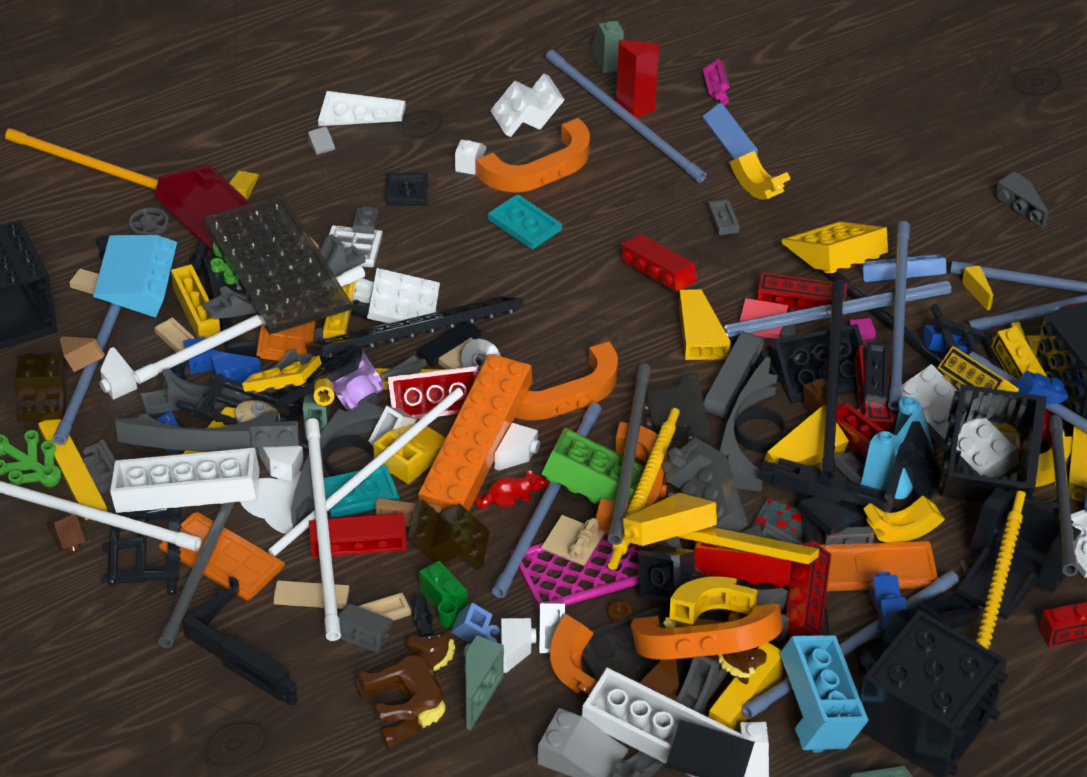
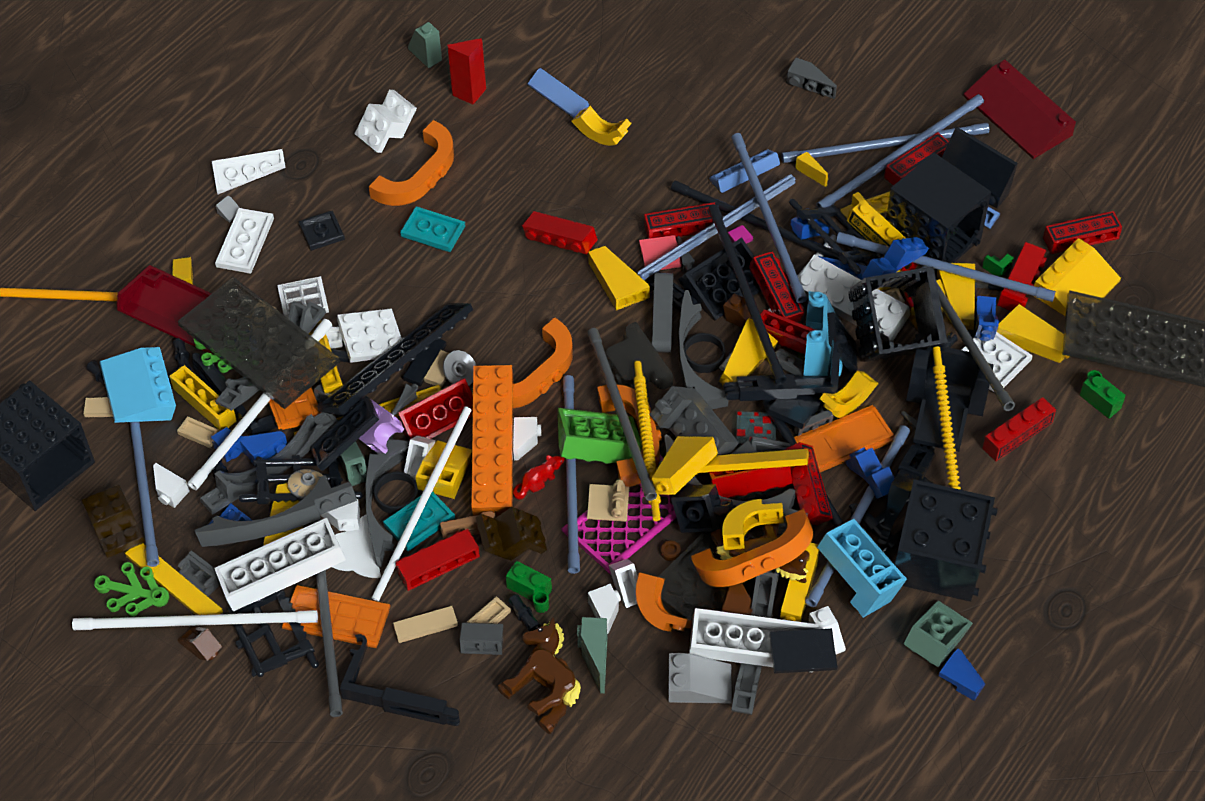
camera: 20 degrees left, 10 degrees up
(80, 351) = (131, 477): medium nougat slope -> none
(149, 221) = (121, 334): dark grey wheel -> none
(292, 374) = (321, 439): yellow wing -> none
(321, 174) = (244, 240): none -> white plate
(323, 399) = (358, 447): yellow gear -> none
(331, 620) = (458, 643): white piece -> none
(365, 220) = (303, 272): dark grey plate -> none
(466, 156) = (359, 184): white slope -> none
(473, 622) = (568, 604): medium blue brick -> none
(690, 168) = (539, 134): sand blue piece -> none
(717, 81) = (525, 47): dark pink plate -> none
(723, 217) = (588, 172): dark grey plate -> none
(839, 245) = (690, 168): yellow slope -> none
(876, 372) = (775, 276): black tile -> none
(968, 371) = (857, 257): yellow brick -> none

